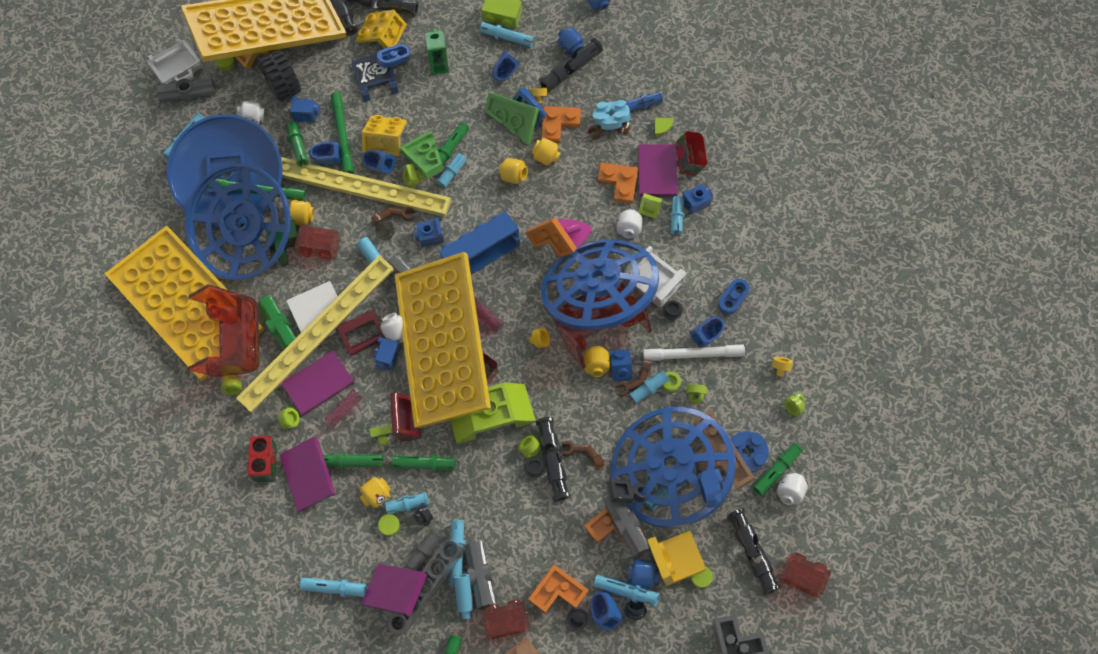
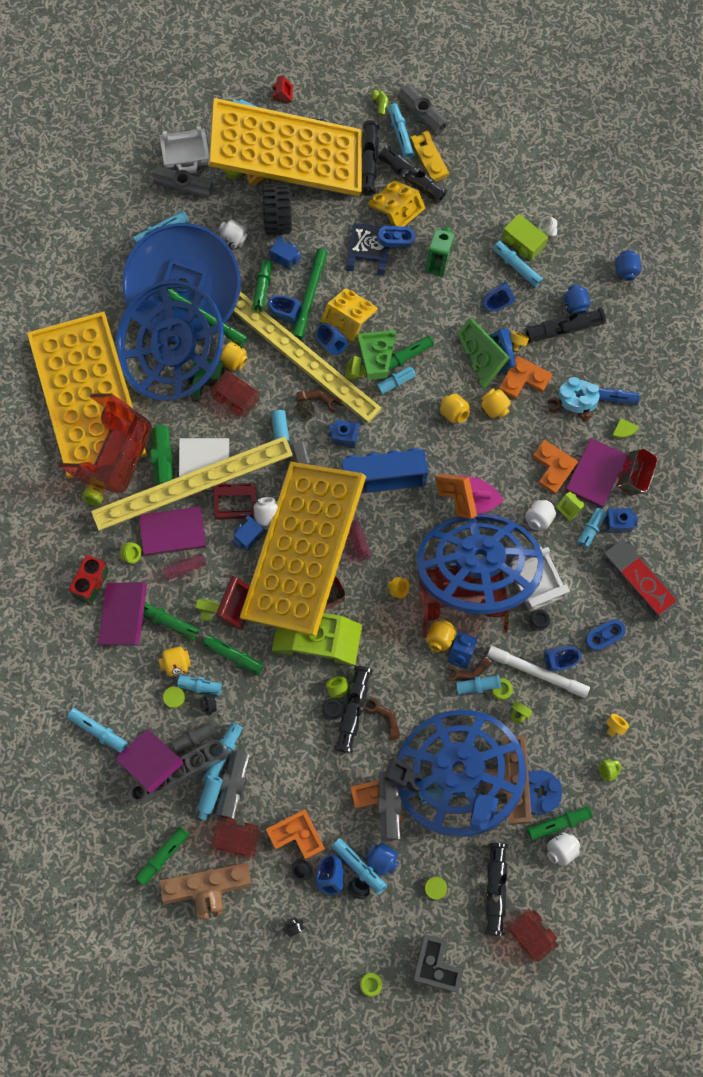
camera: 20 degrees right, 5 degrees up
(677, 557) = (420, 859): yellow bracket -> none
(738, 238) = (640, 579): none -> brick

